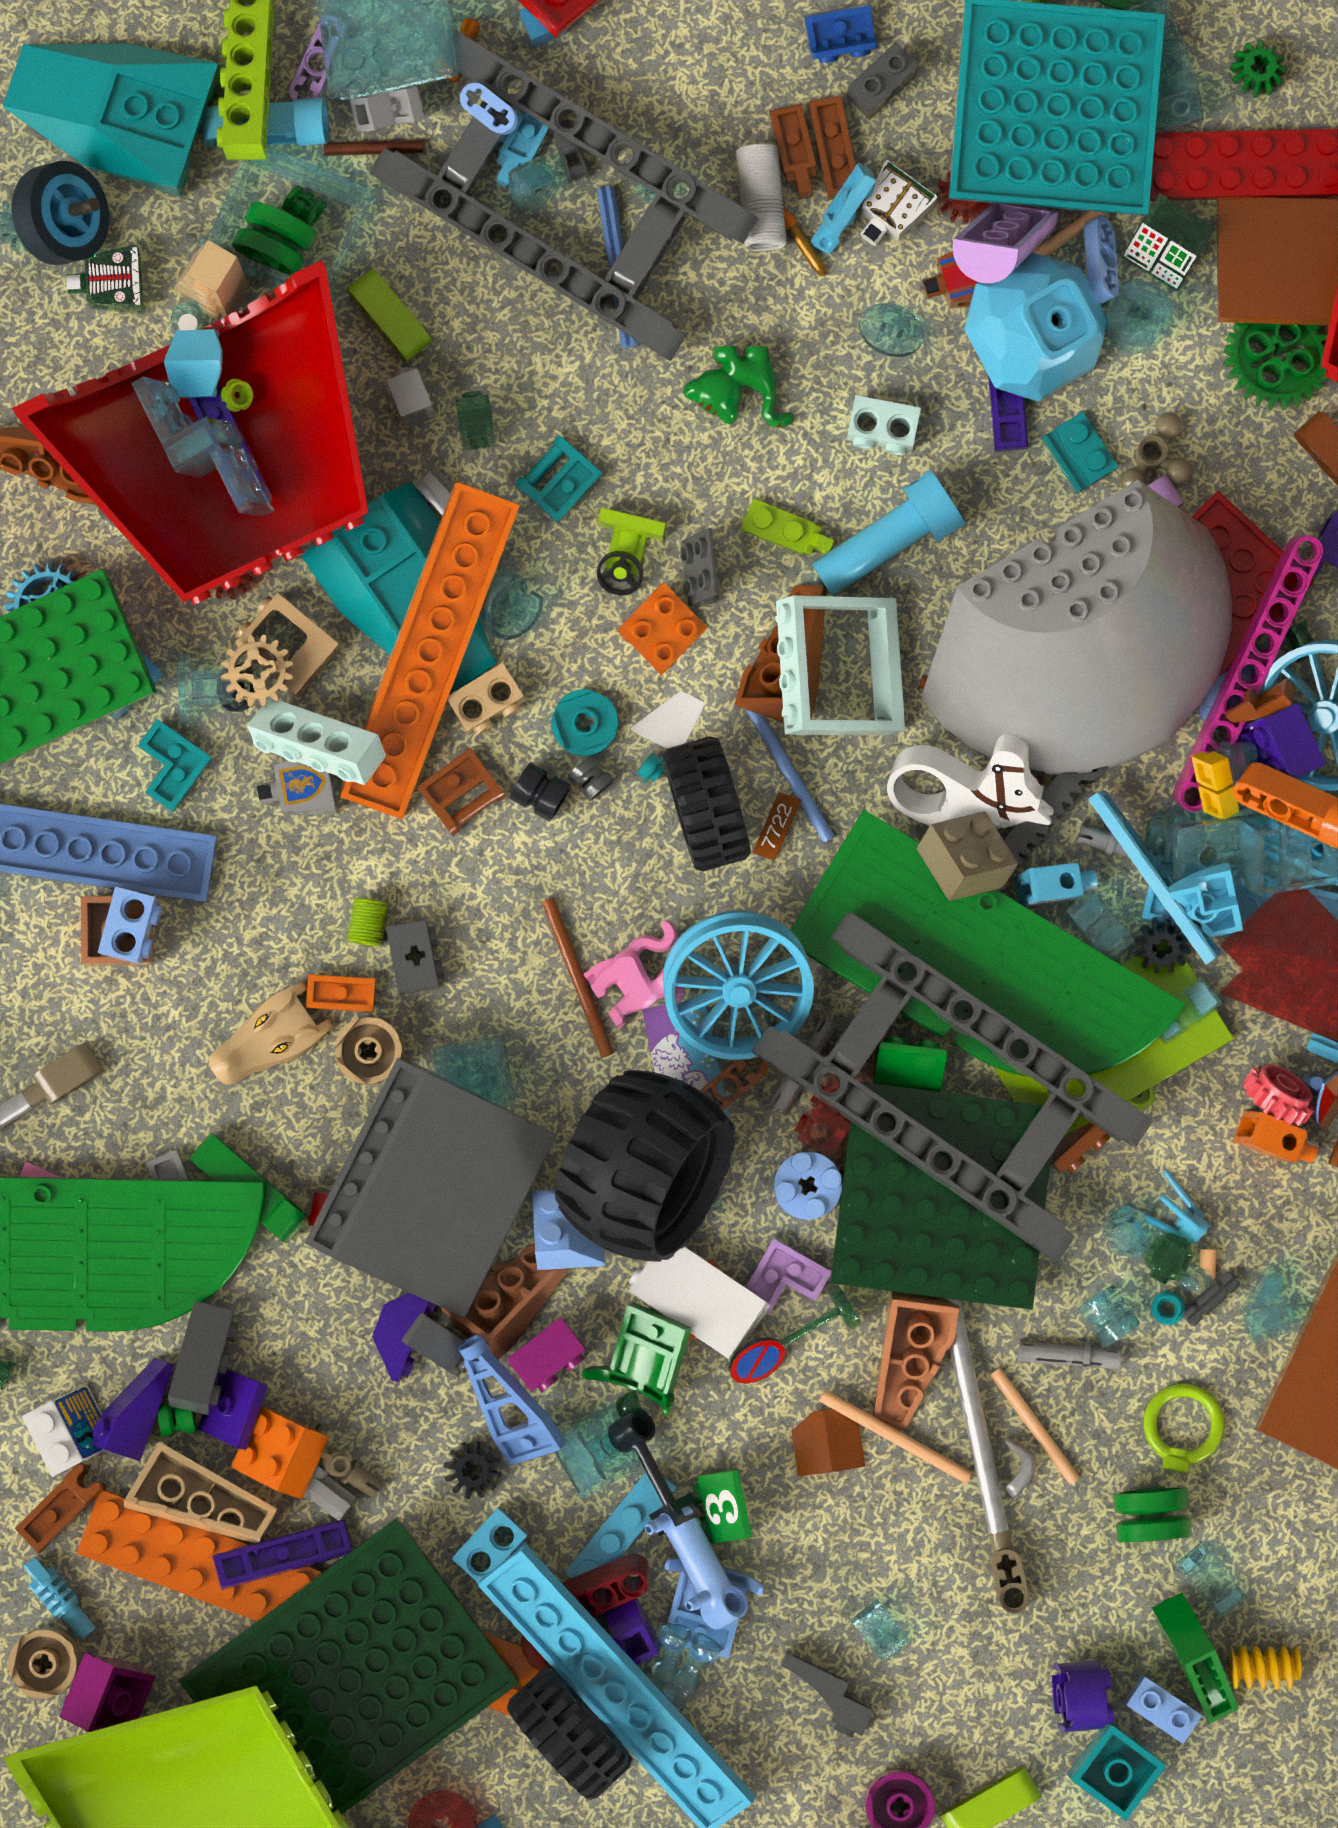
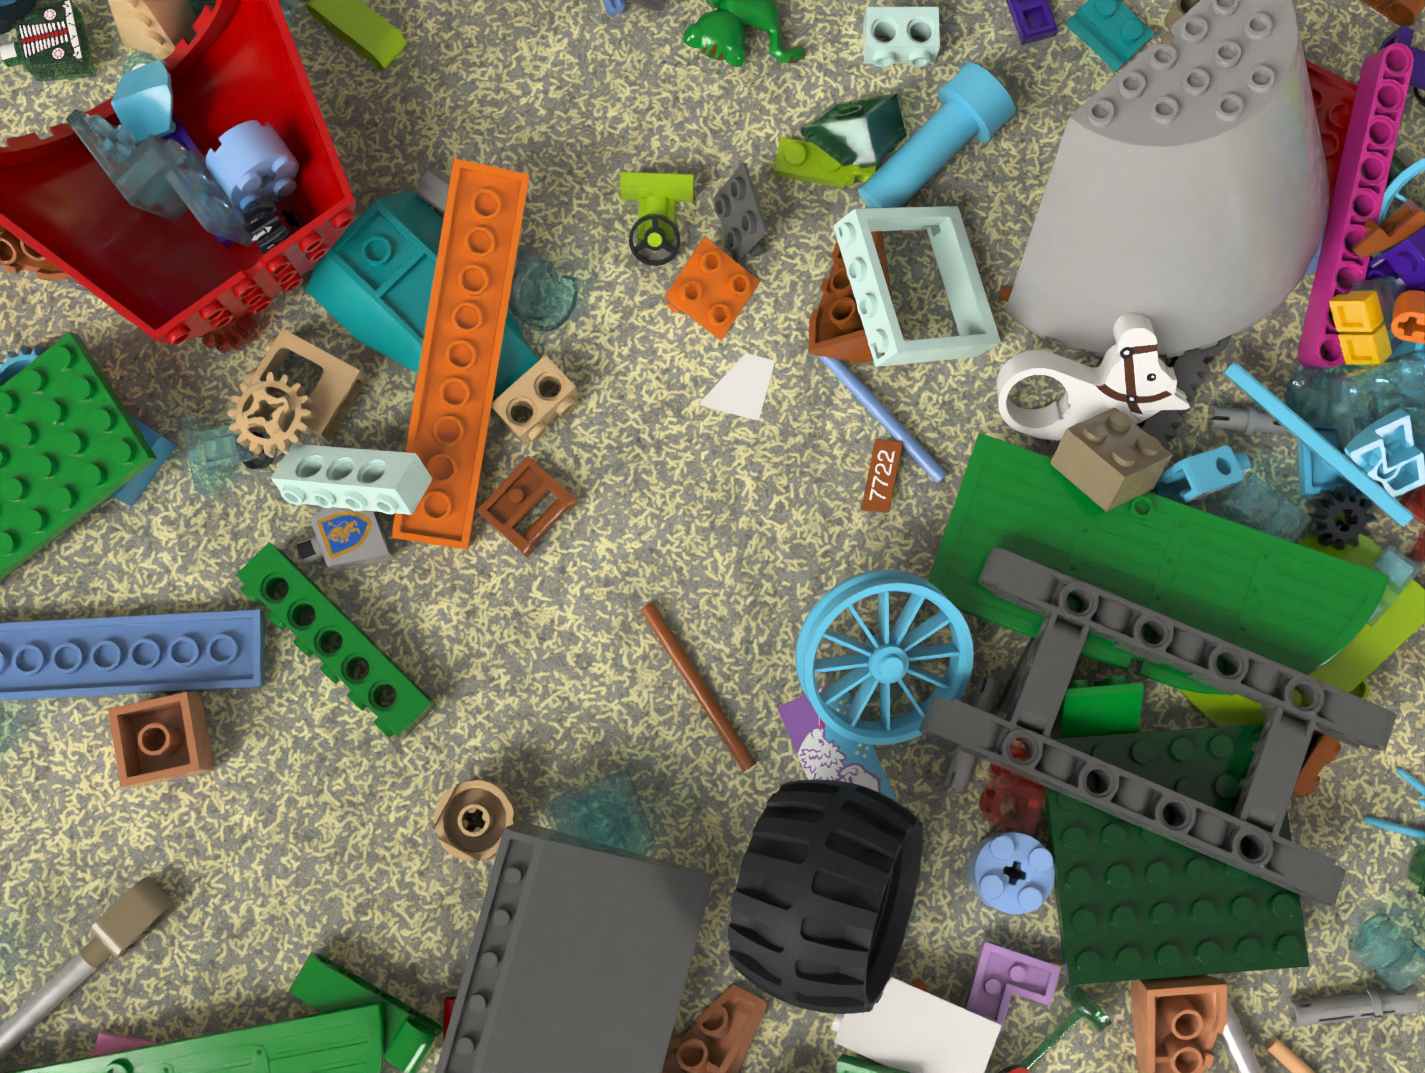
camera: 15 degrees left, 5 degrees down
(120, 924) = (153, 731): light blue brick -> none
(167, 1167) = (268, 1006): light grey plate -> none
(181, 763) = (208, 538): teal plate -> none
(234, 801) = (272, 567): none -> green brick
(245, 395) = (203, 117): lime plate -> none
(271, 1036) = (363, 824): tan animal -> none
(283, 453) = (252, 164): none -> light blue brick
(292, 510) = (271, 221): none -> black gear
(341, 993) = (433, 759): orange plate -> none
(367, 922) = (449, 671): lime piece -> none
(408, 976) = (492, 684): dark grey brick -> none
(410, 397) = (391, 97): light grey brick -> none
(475, 421) = (467, 108): clear green brick -> none
(540, 792) = (619, 490): black wheel -> none
(557, 1241) = (735, 1000): light blue slope -> none
(566, 486) = (578, 162): teal plate -> none
(585, 772) = (667, 462): dark grey wheel -> none
(594, 706) = (655, 385): teal plate -> none
(631, 977) = (758, 673): bright pink animal -> none
(651, 768) = (732, 439): teal plate -> none
(706, 803) = (806, 459): black tyre -> none
(751, 1078) = (916, 760): dark orange beam -> none
(821, 510) = (858, 130): none -> clear green slope
(1128, 1232) = (1383, 849): clear light blue head -> none

